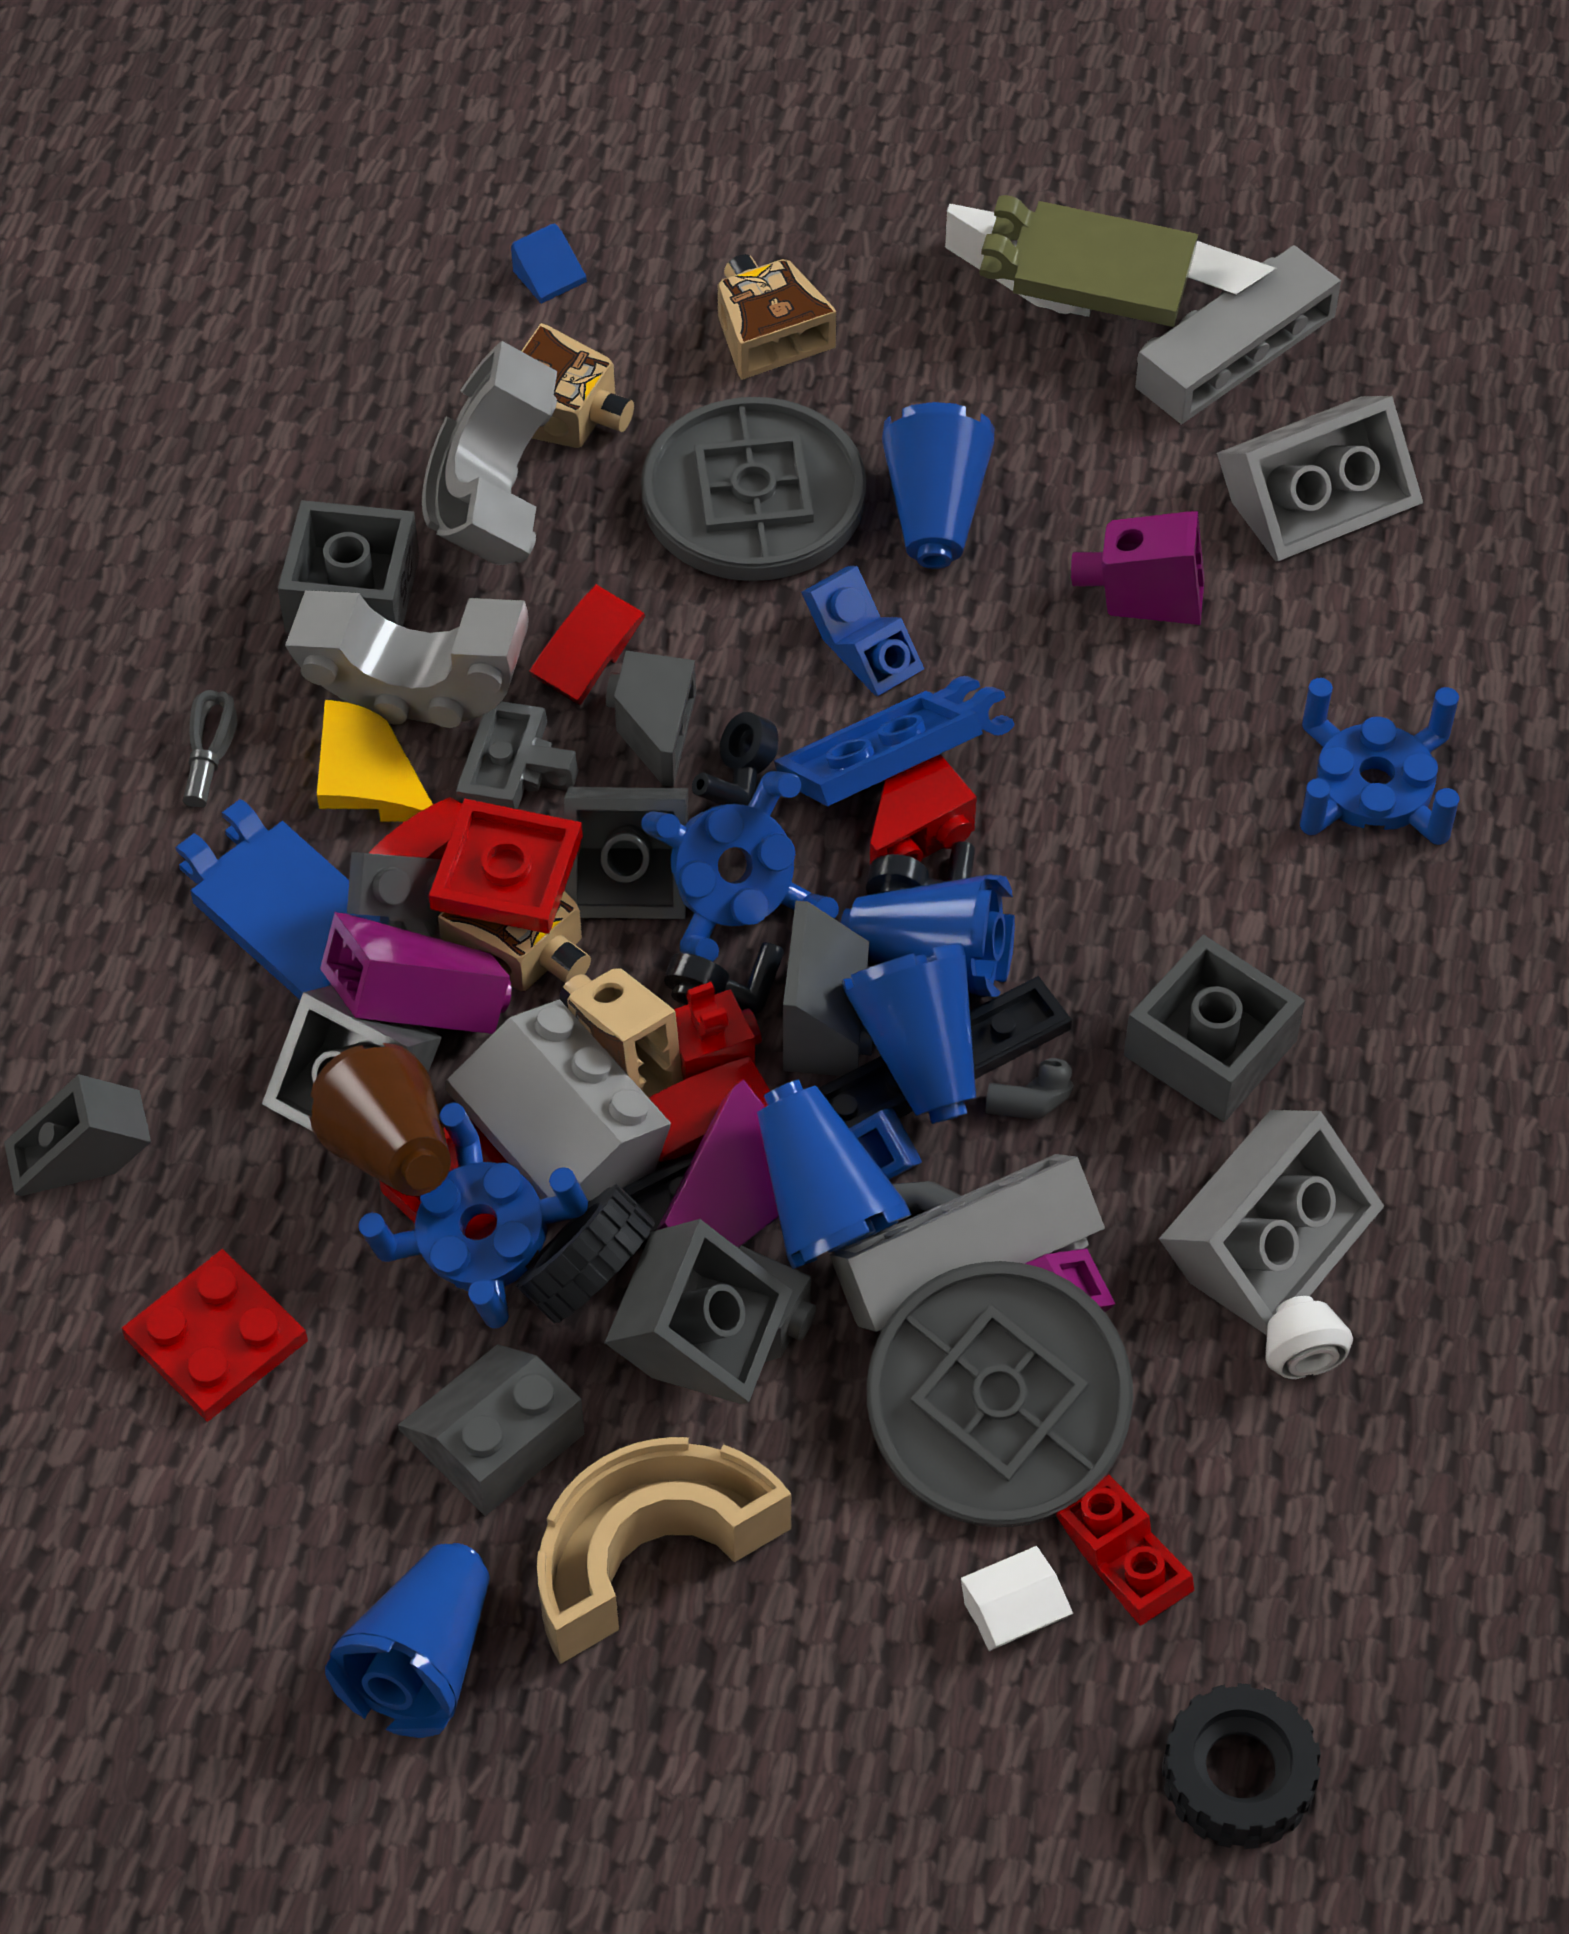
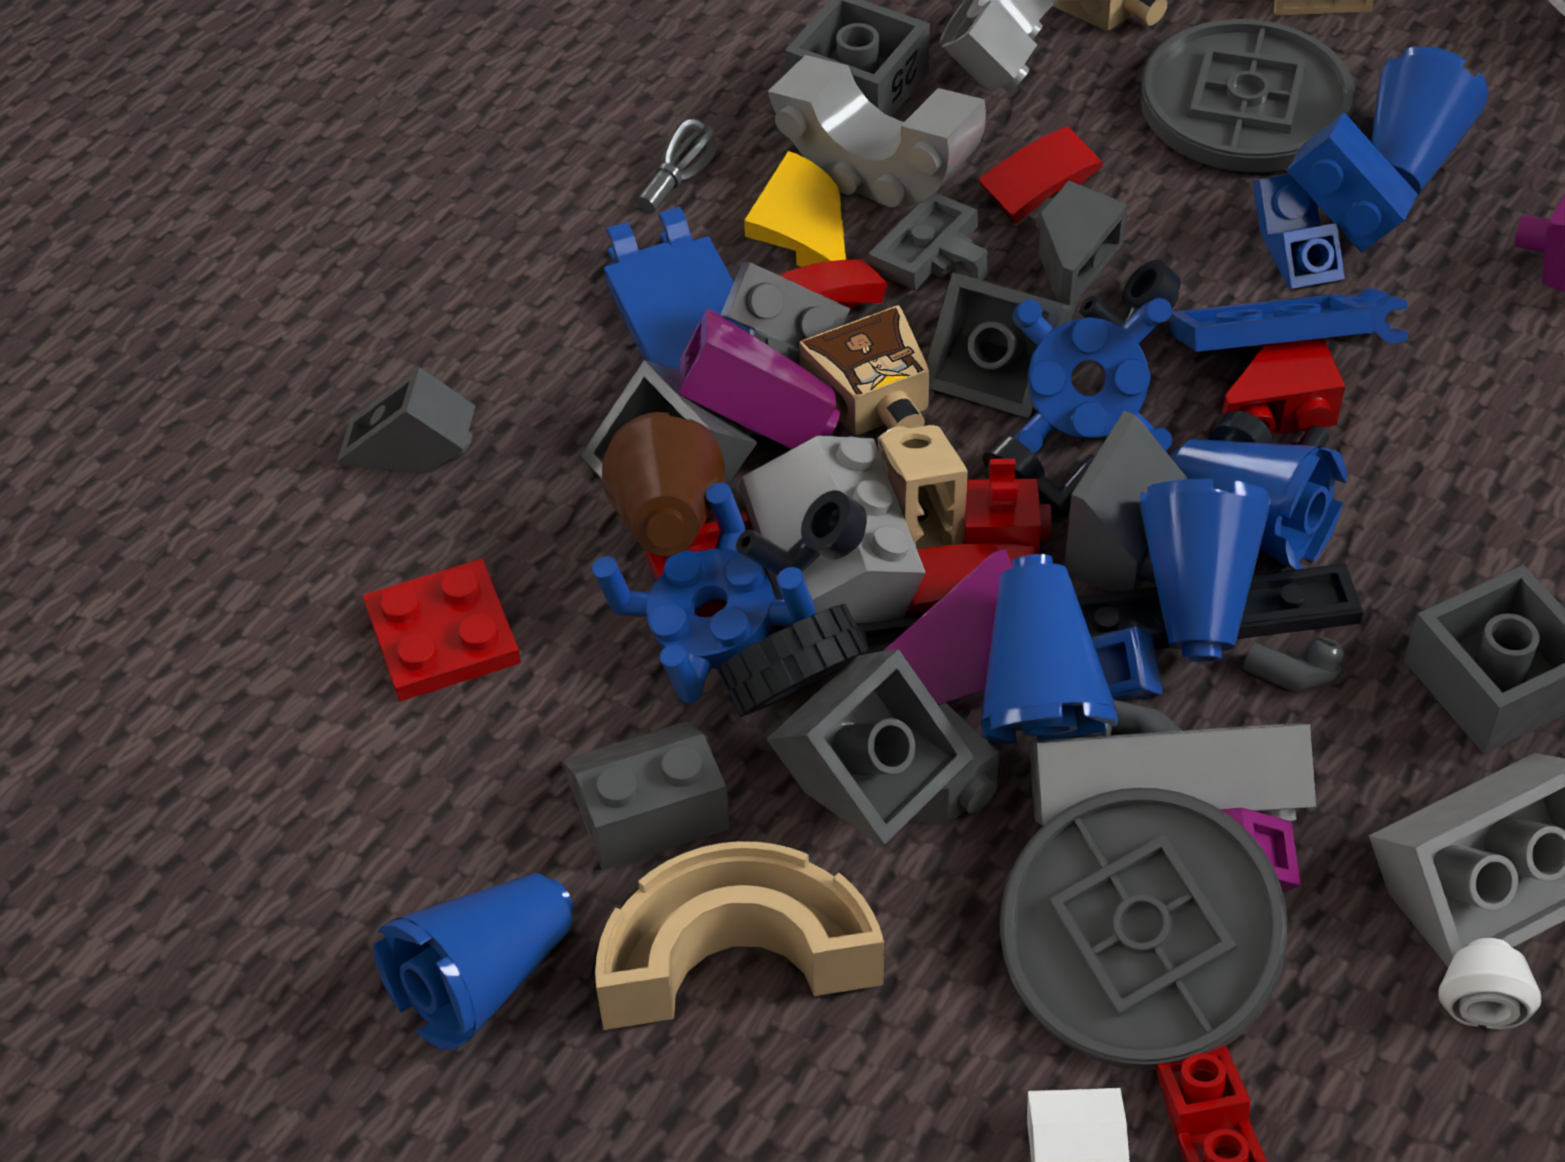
camera: 25 degrees right, 5 degrees down
(506, 866) = (875, 314): red plate -> none
(562, 1123) = (829, 528): none -> black plate
(901, 570) = (1352, 182): none -> blue brick

